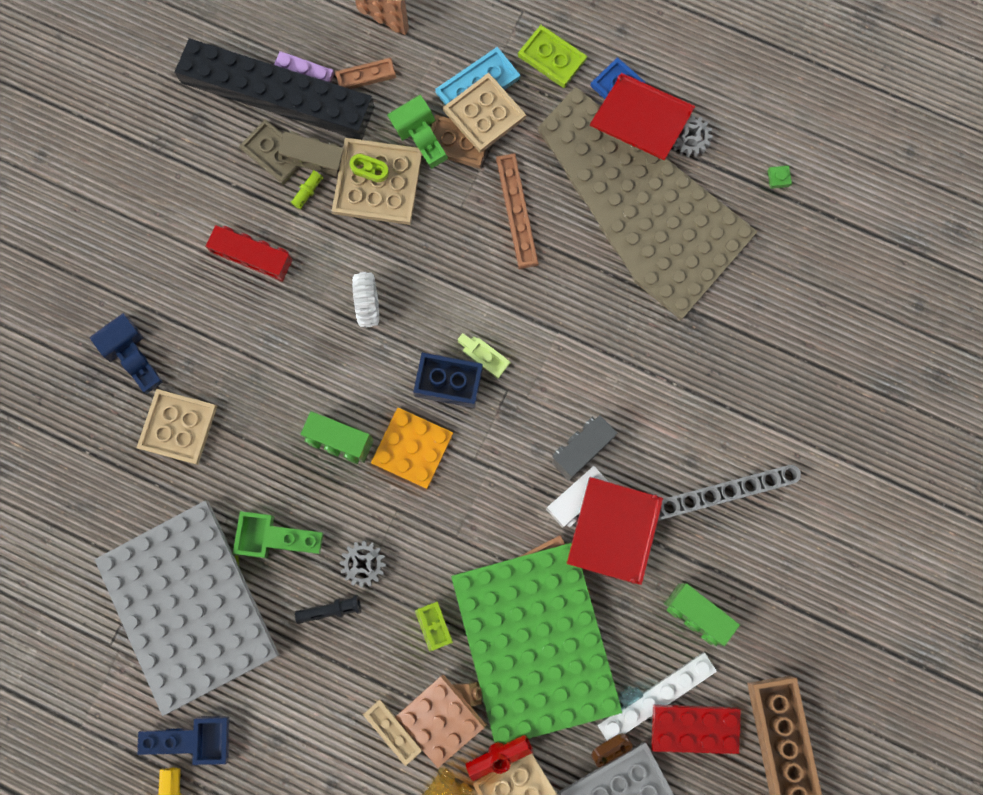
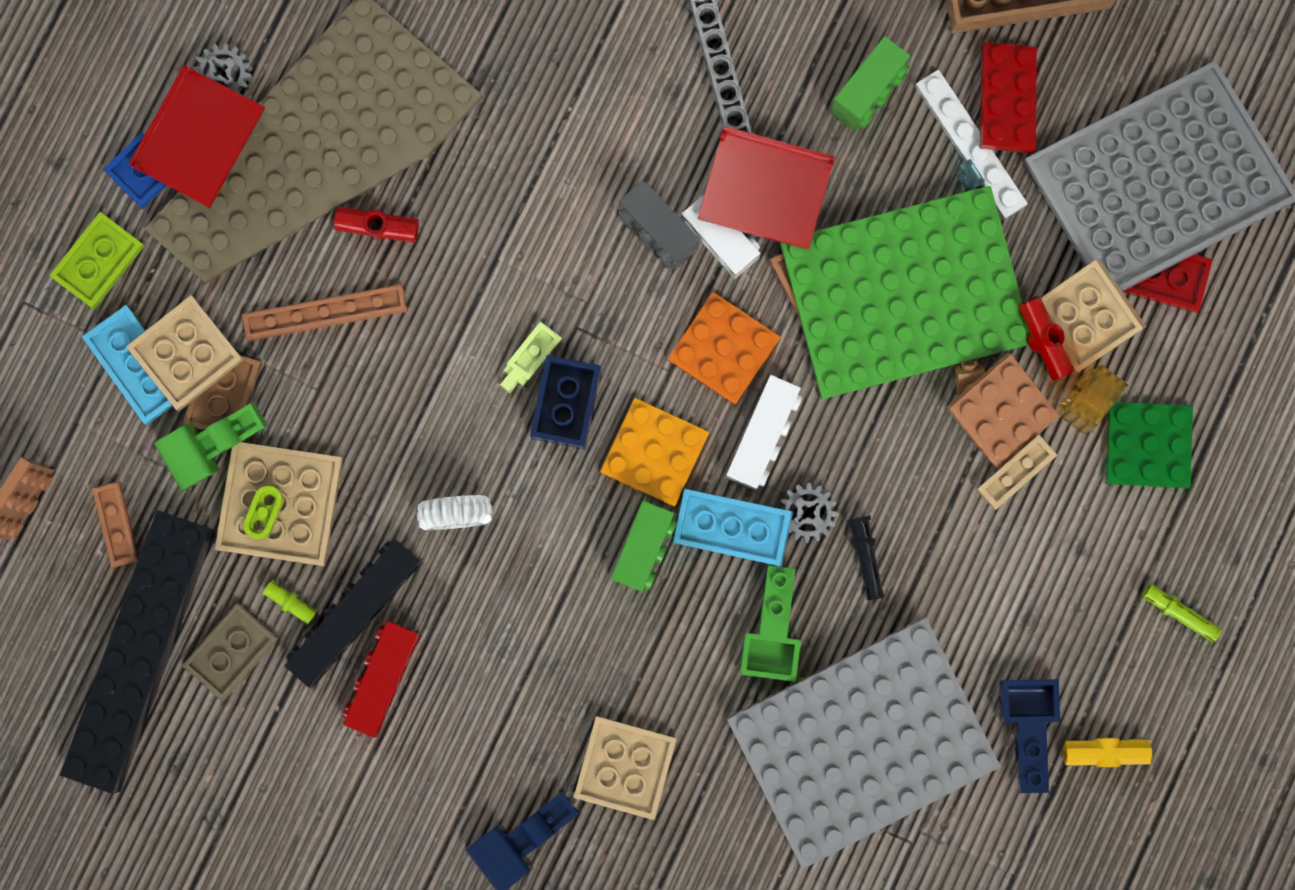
camera: 85 degrees left, 5 degrees up
(297, 233) = (353, 613): none -> black brick
(304, 67) = (104, 614): lavender plate -> none
(310, 153) = (238, 596): dark tan brick -> none
(352, 506) = (733, 527): none -> medium azure plate
(424, 529) = (763, 433): none -> white brick
(433, 626) = (886, 421): lime hinge -> none
(491, 500) = (724, 348): none -> orange plate
(579, 254) = (359, 222): none -> red piece
(611, 749) = (1034, 201): reddish brown beam -> none

